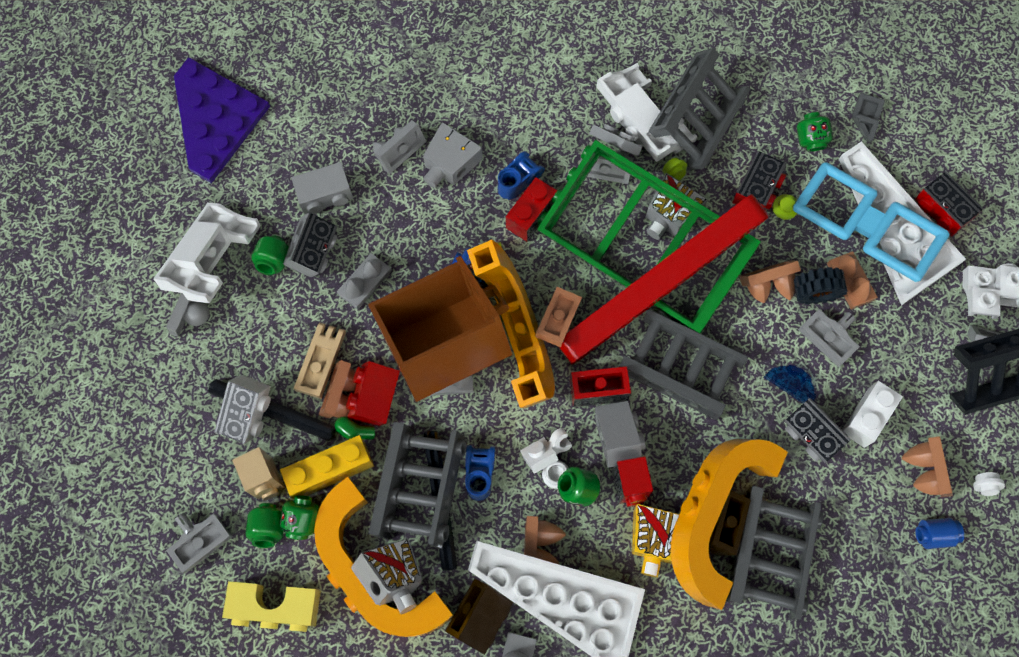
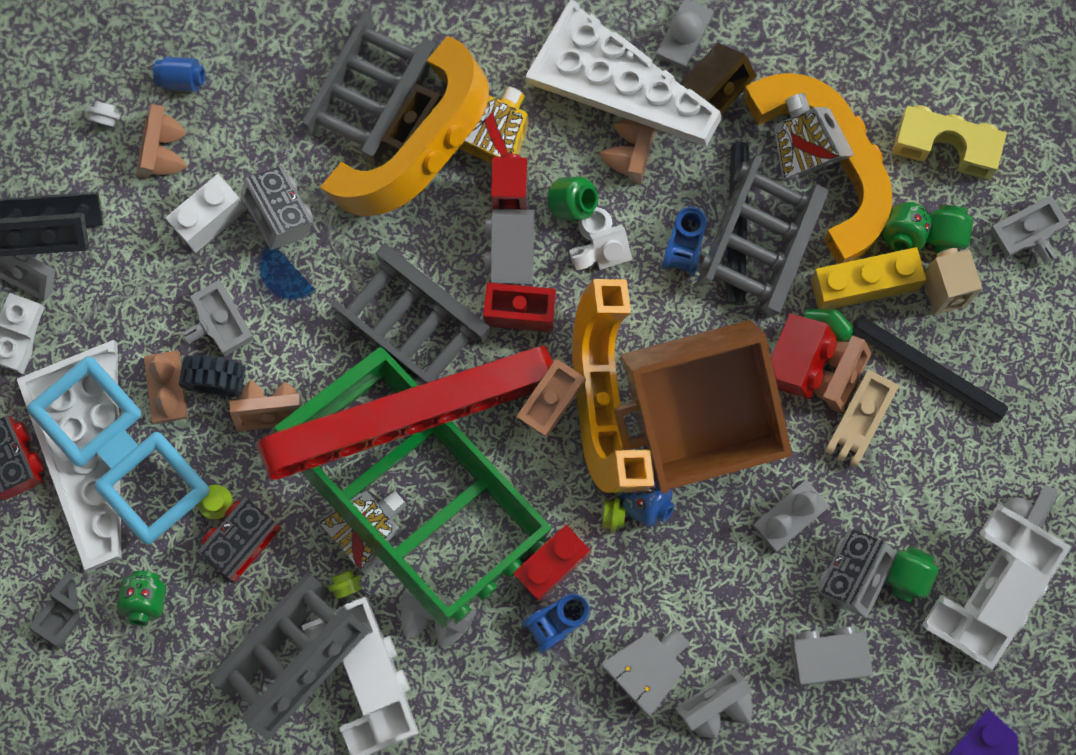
camera: 165 degrees left, 5 degrees up
(243, 409) = (964, 366): brick -> none
(622, 141) = (415, 634): light grey plate -> none

